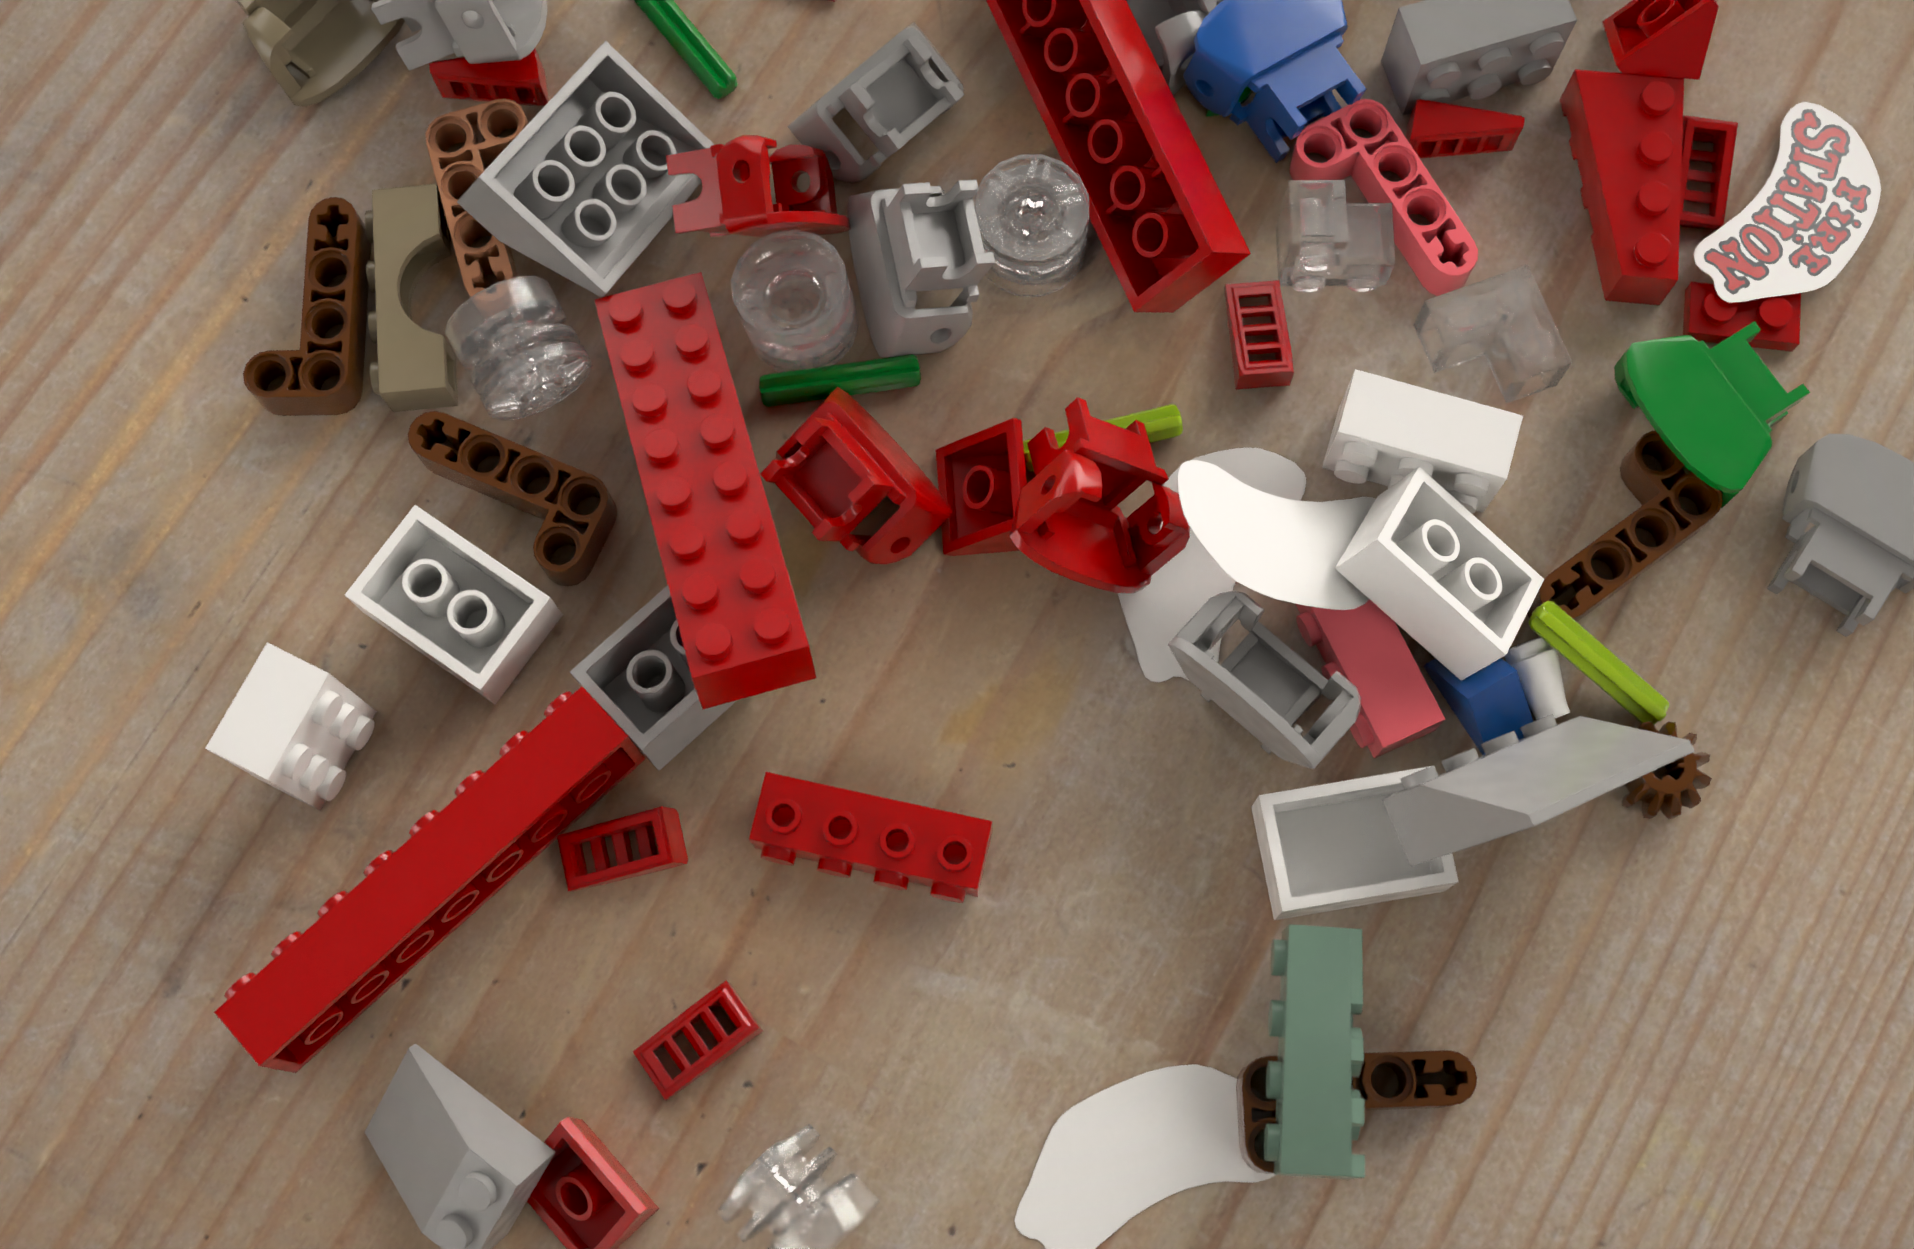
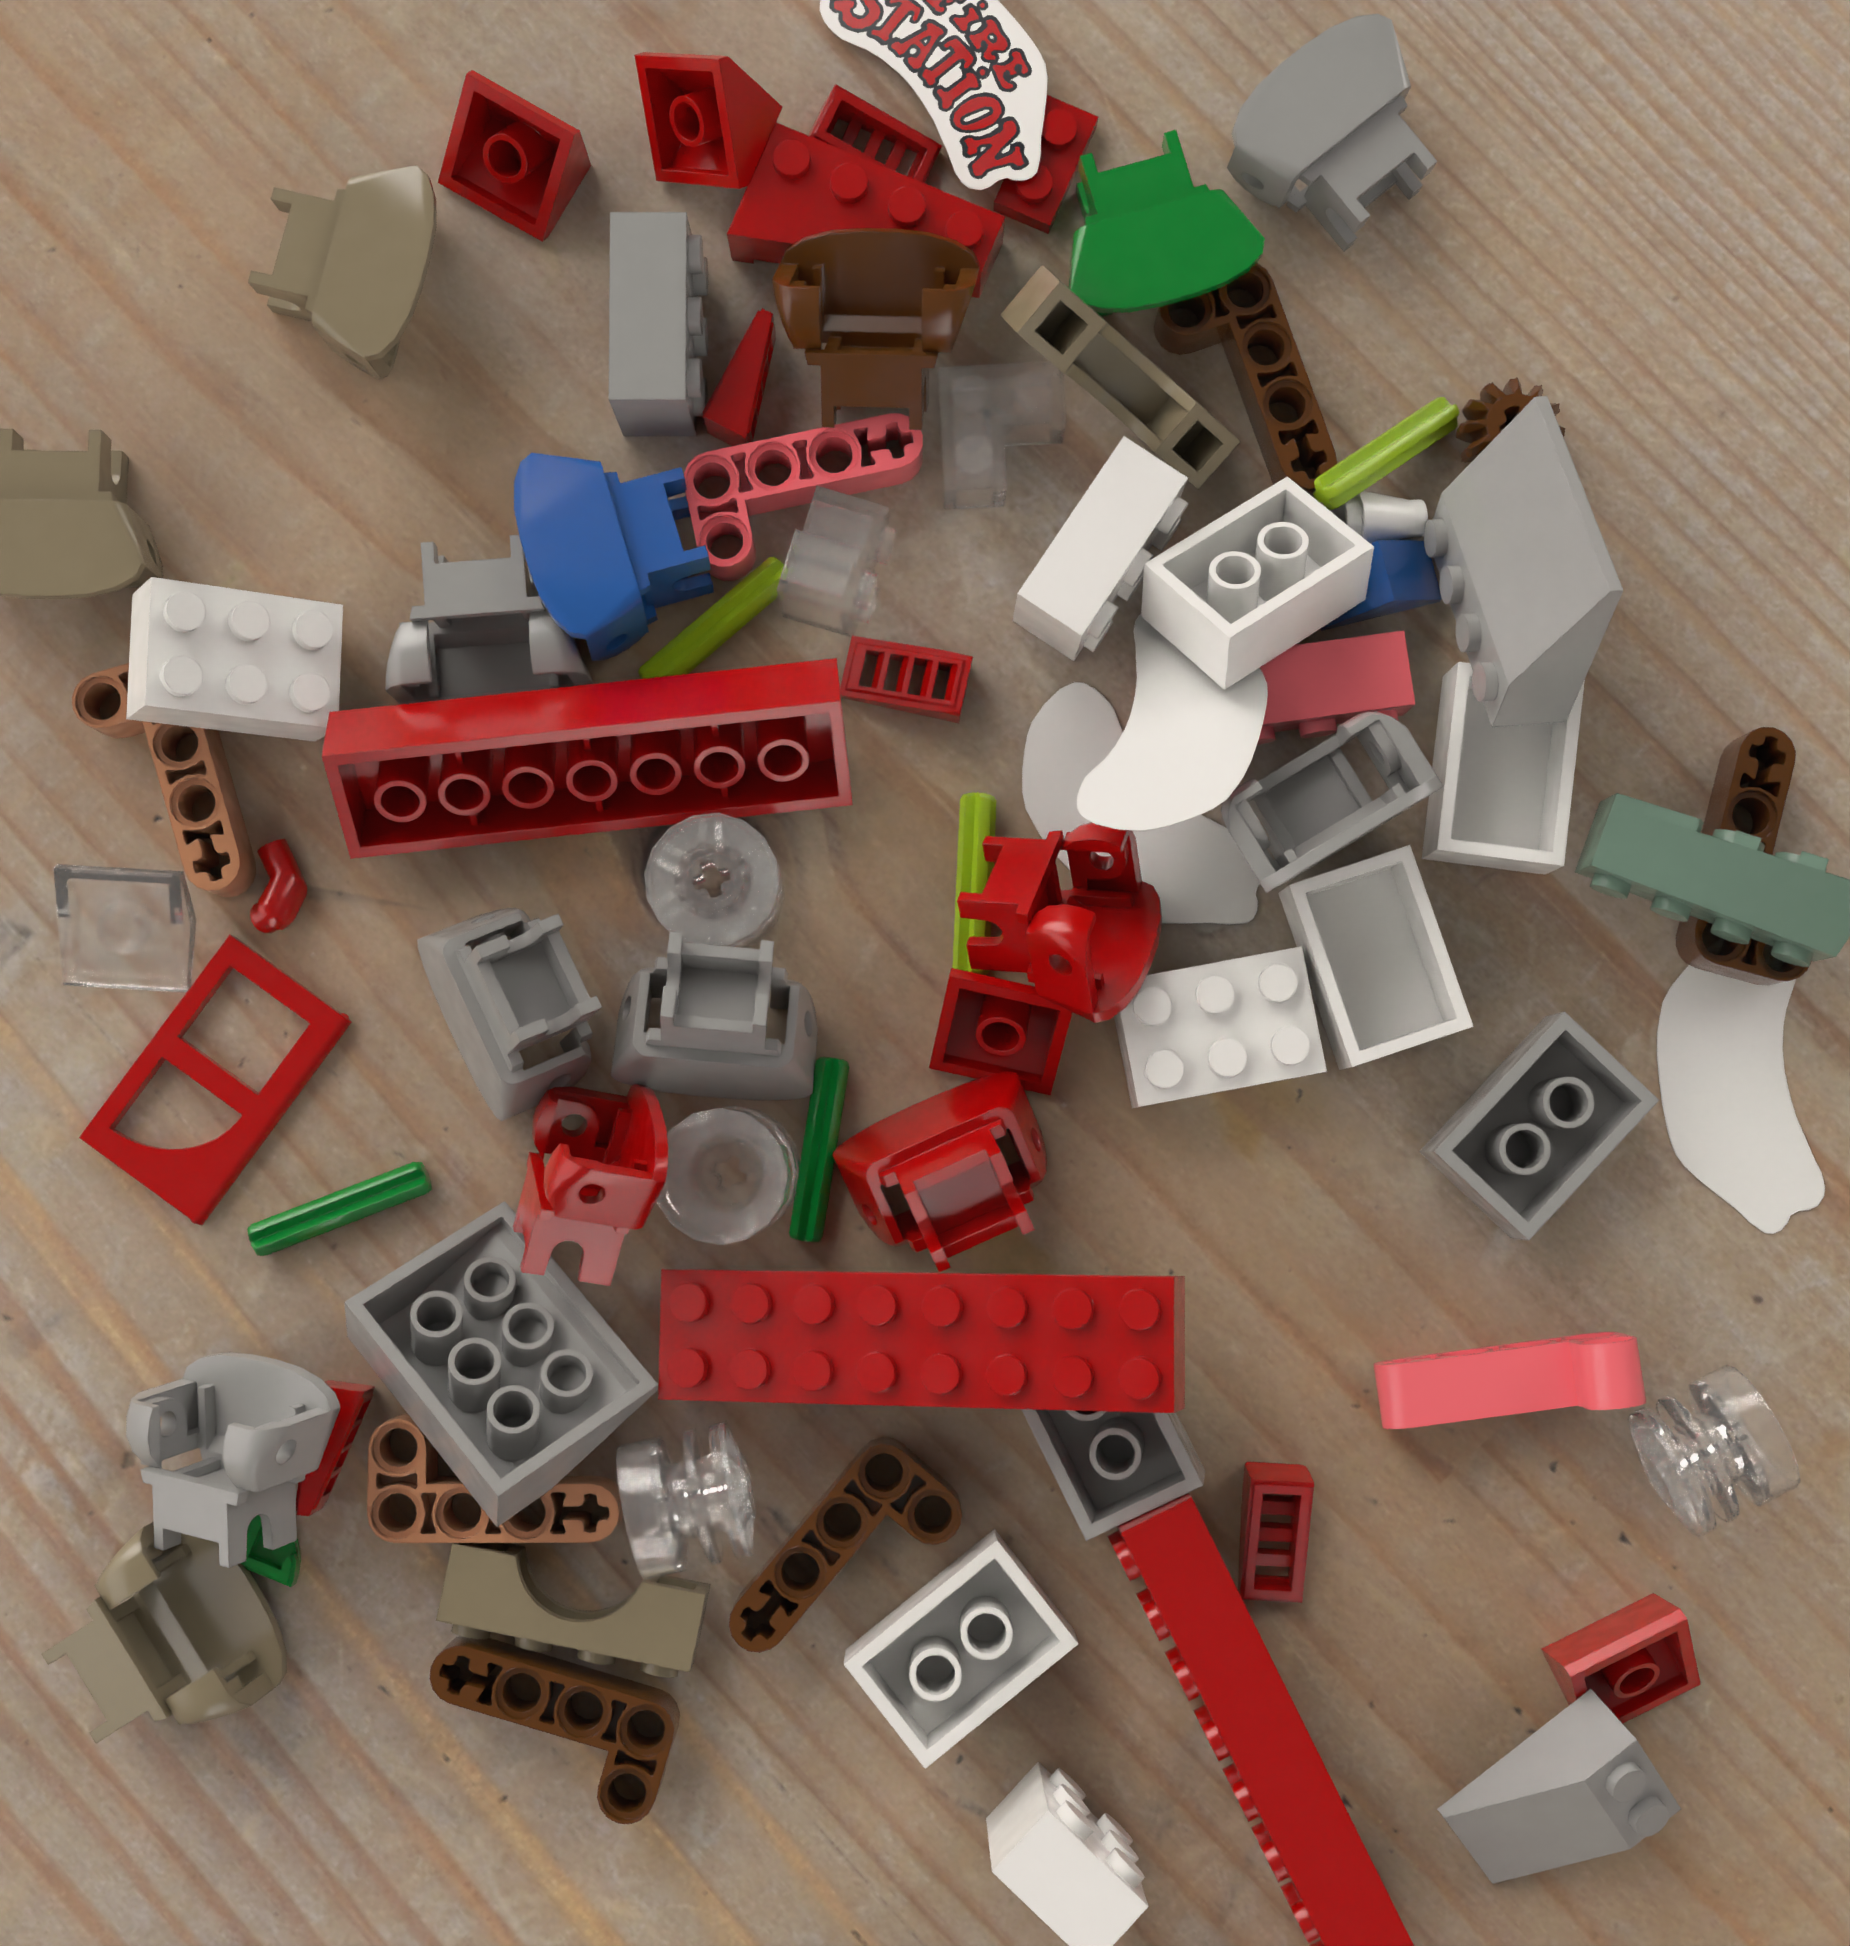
camera: 80 degrees left, 10 degrees up
(393, 72) = (276, 1564): none -> green tile
(702, 1009) = (1482, 1457): red slope -> none
(810, 1008) = (1511, 1379): none -> coral beam
(870, 835) = (1343, 1263): red brick -> none
(1043, 666) = (1220, 1028): none -> white piece
(1044, 966) = (1539, 1126): none -> light grey brick
(1147, 779) = (1375, 957): none -> white piece
(1241, 167) = (717, 623): none -> lime axle
(1556, 209) = (881, 307): none -> reddish brown piece
(1588, 371) = (1119, 376): none -> dark tan arch

